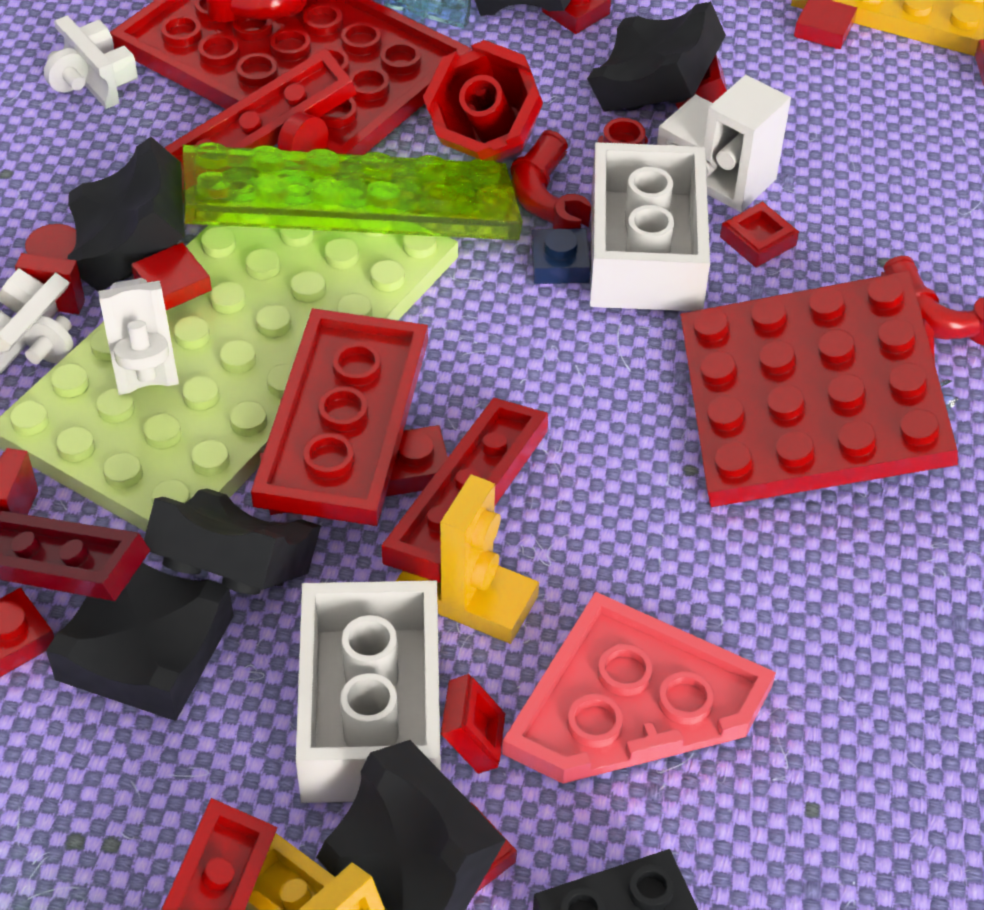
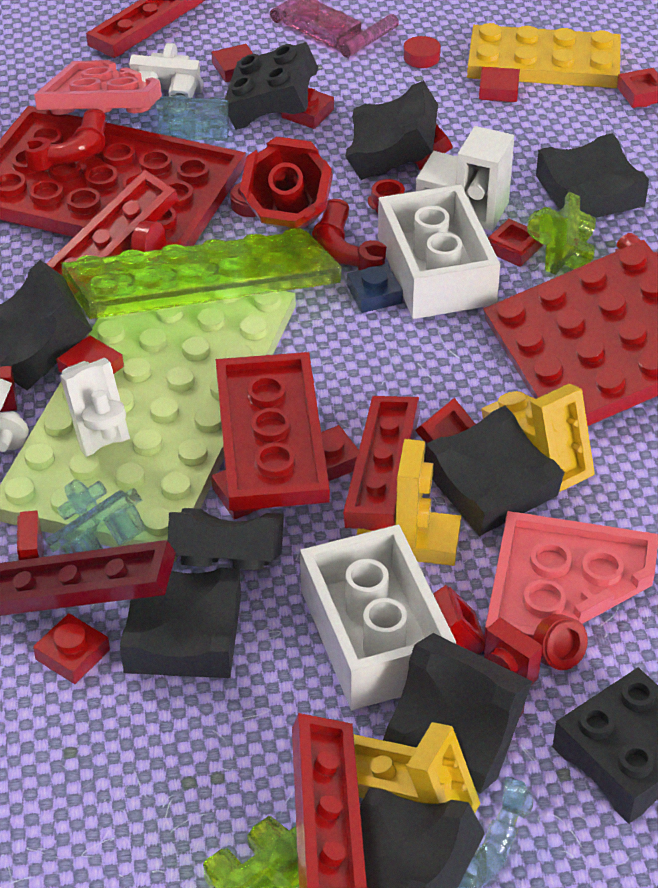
camera: 15 degrees left, 5 degrees down
(88, 471) = (115, 512): none -> clear light blue hips
(522, 786) = (513, 649): none -> red plate
(568, 468) = (446, 422): none -> red plate
(590, 784) = (562, 641): none -> red tile
(597, 533) = (492, 471): none -> black brick
(691, 499) = (555, 427): none -> yellow bracket
(815, 233) = (563, 234): none -> clear neon green hips
(887, 173) = (596, 174): none -> black brick

